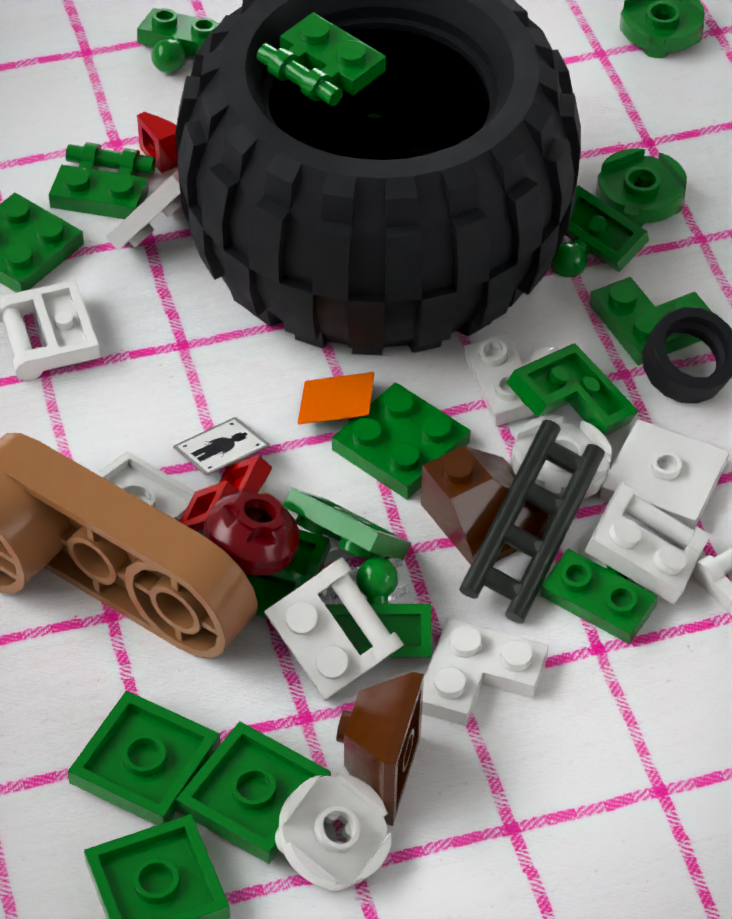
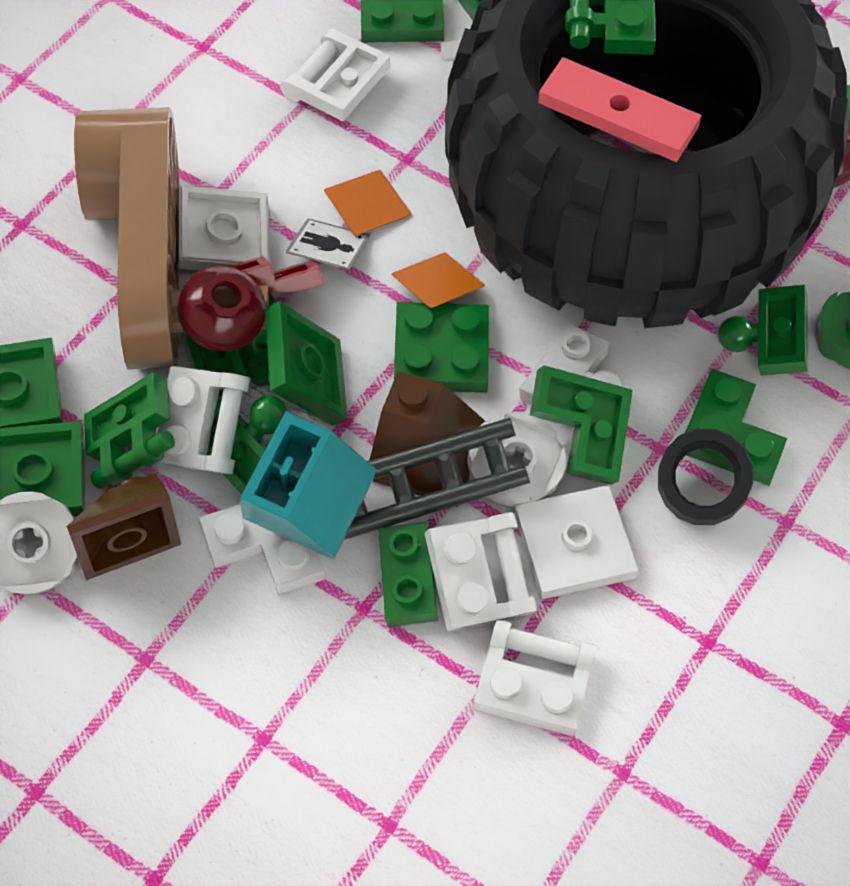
camera: 50 degrees right, 10 degrees up
(201, 396) = (367, 202): none -> orange sticker
(277, 680) = (126, 420): none -> green plate
(429, 116) = (619, 109): none -> coral tile
(476, 591) = (307, 486): none -> teal slope

